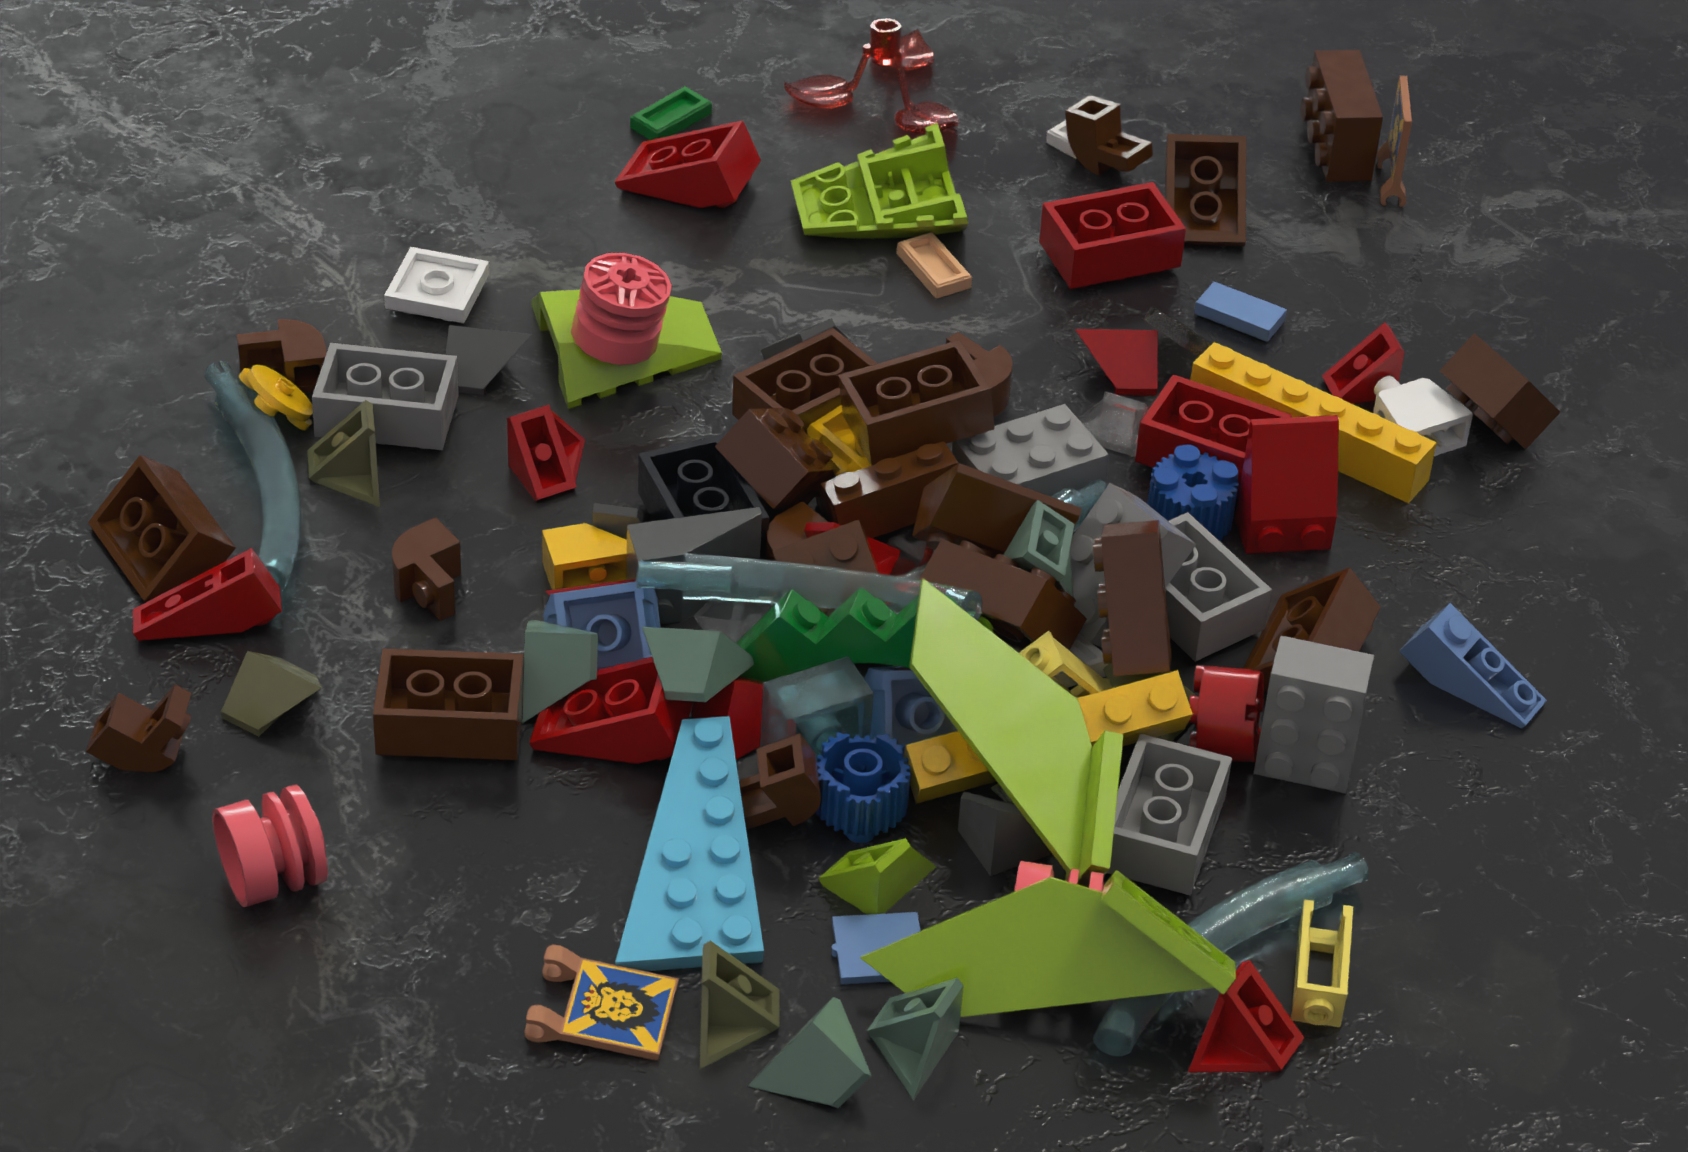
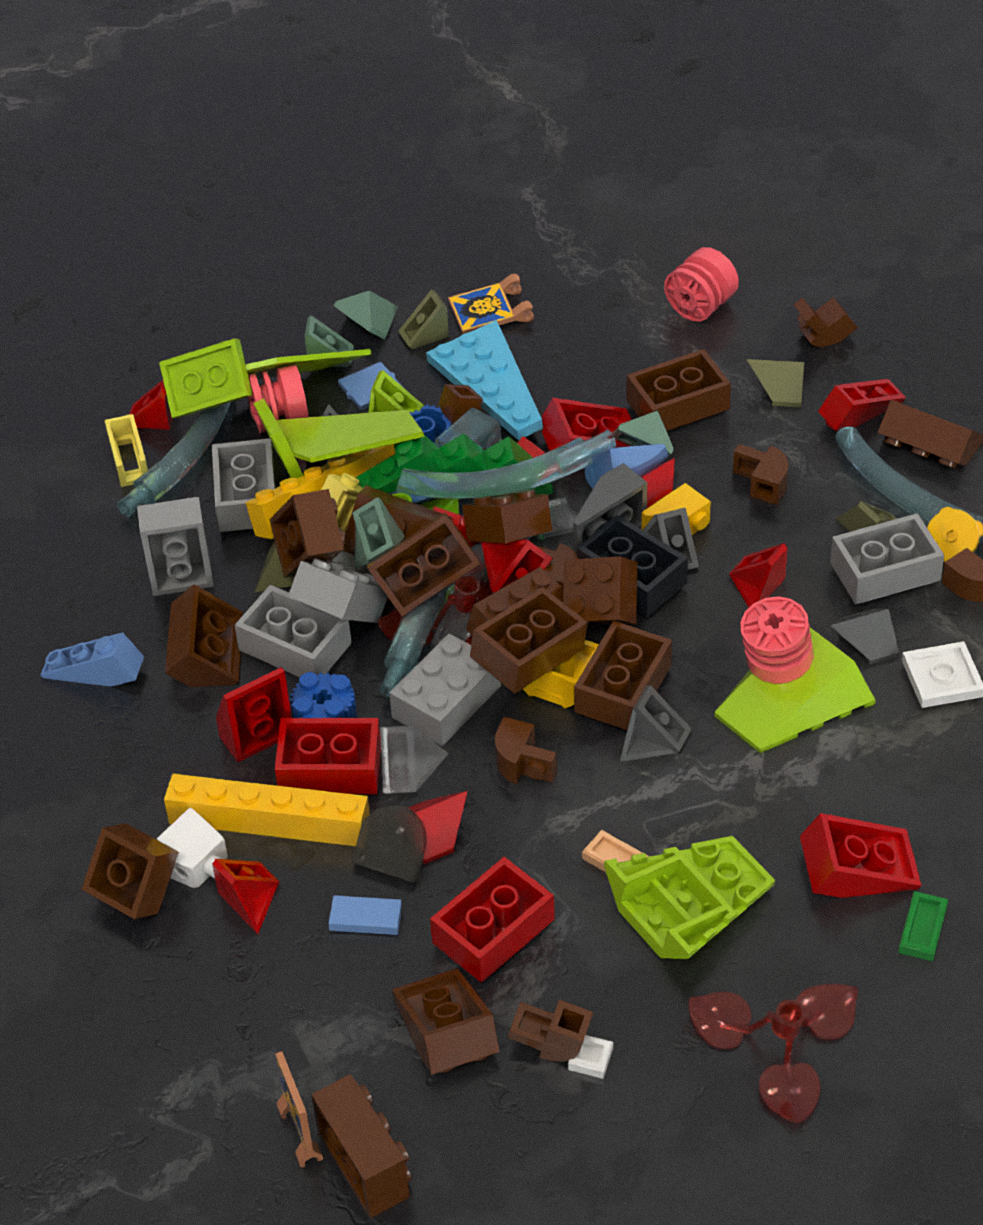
camera: 160 degrees right, 5 degrees up
(695, 662) = (549, 431): sand green slope -> none
(1227, 711) = (233, 552): red brick -> none

